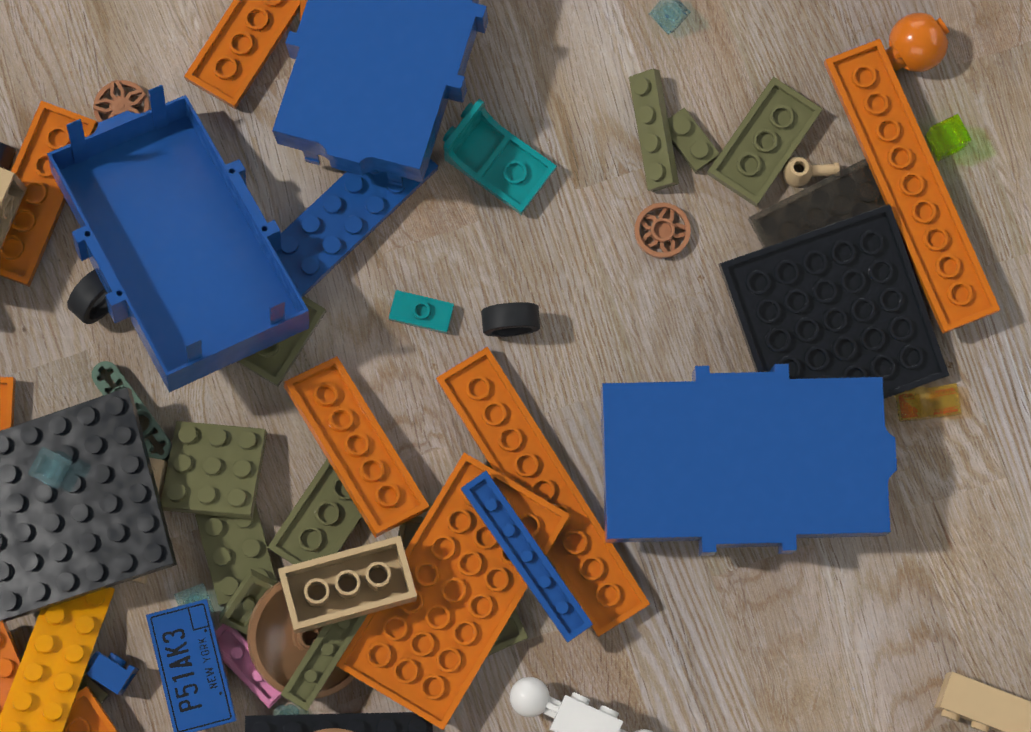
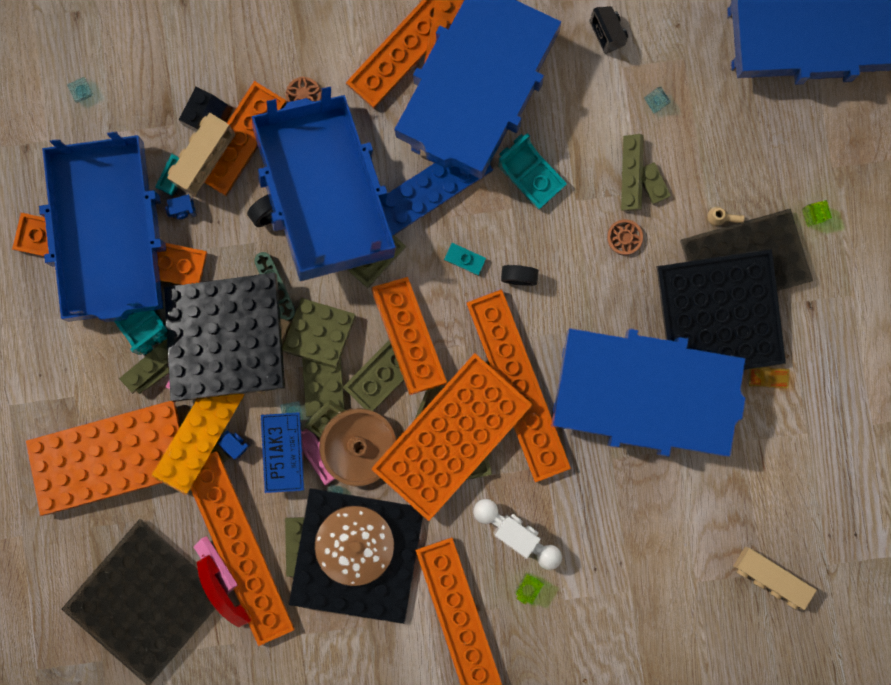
camera: 15 degrees right, 5 degrees up
(49, 467) = (218, 313): clear light blue plate -> none
(320, 662) = (367, 458): olive plate -> none
(347, 584) = (387, 421): tan brick -> none
(526, 556) = (500, 425): blue plate -> none
(764, 141) = (700, 193): olive plate -> none
(911, 186) = (787, 239): orange plate -> none
(917, 42) = (810, 149): orange brick -> none

